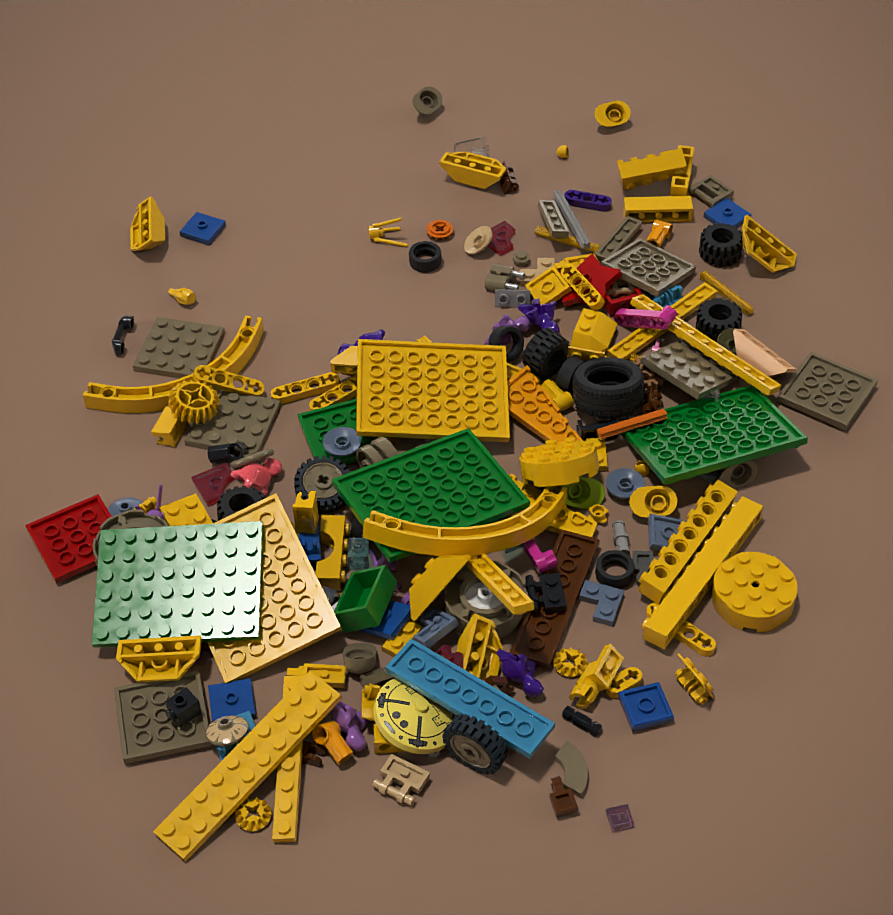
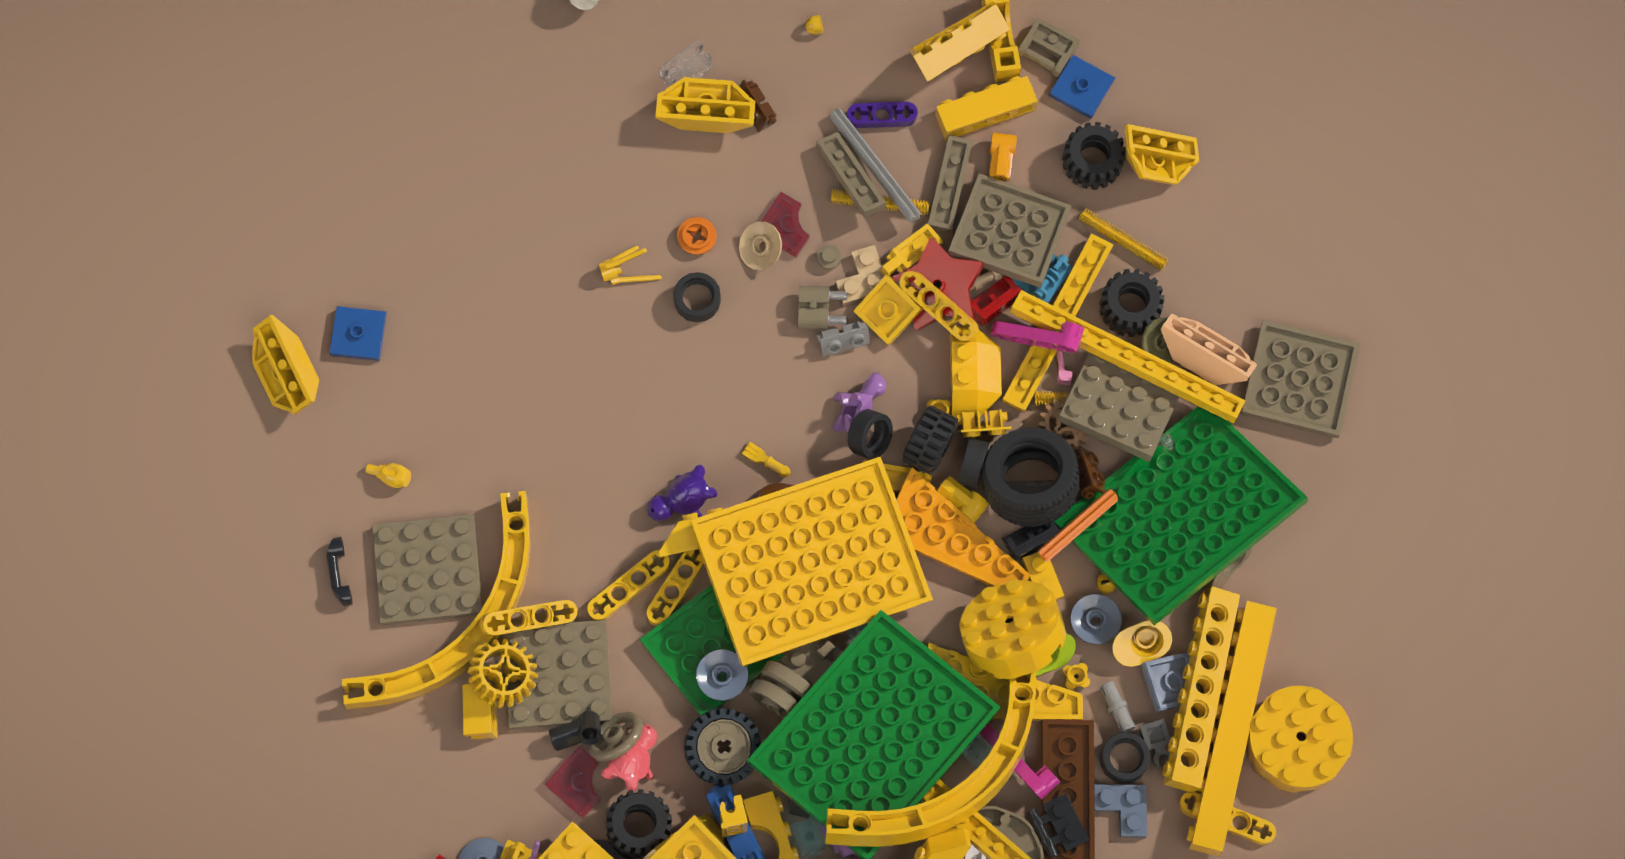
camera: 25 degrees left, 25 degrees up
(540, 314) = (896, 365): dark purple animal -> none

